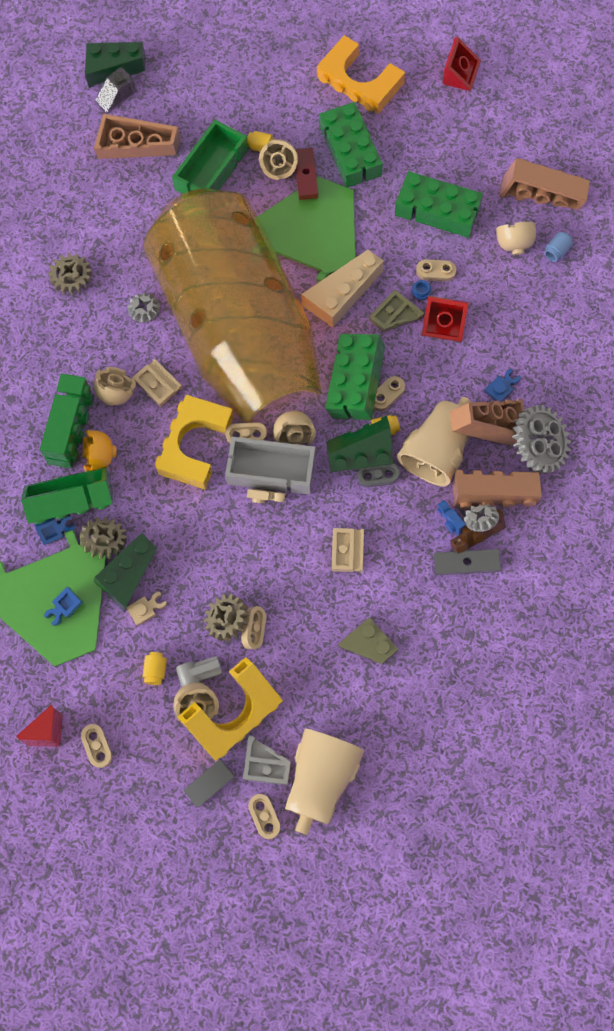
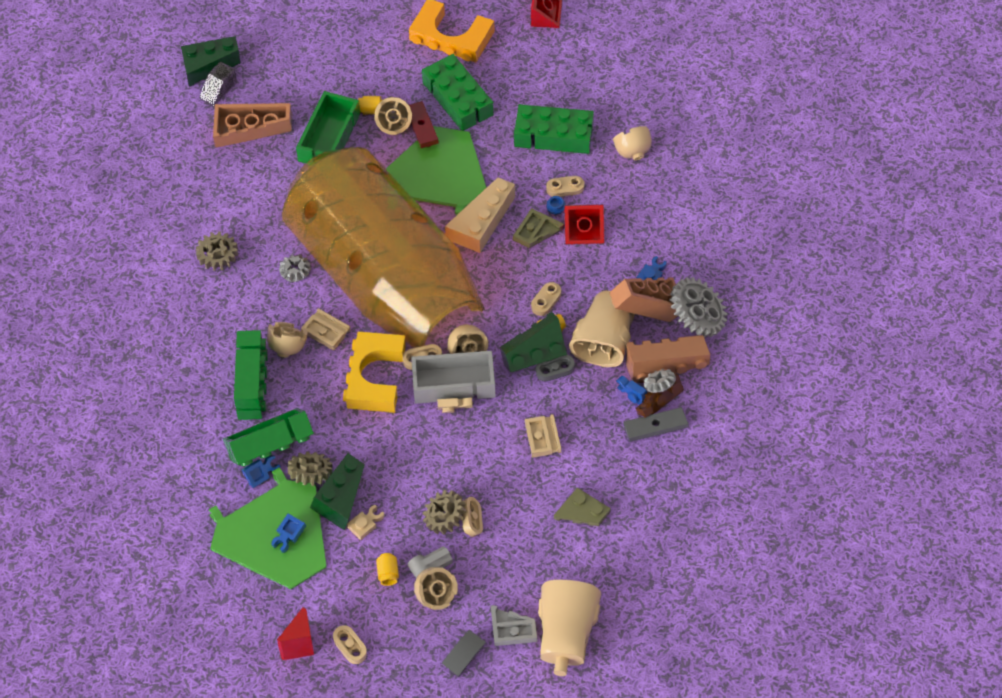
camera: 15 degrees left, 15 degrees down
(97, 450) = (284, 392): light orange cylinder -> none
(259, 702) = (493, 574): yellow arch -> none
(264, 817) = (522, 671): tan plate -> none
(355, 376) = (513, 287): green piece -> none
(544, 185) = (647, 94): nougat wedge -> none
(558, 246) = (674, 145): medium blue brick -> none

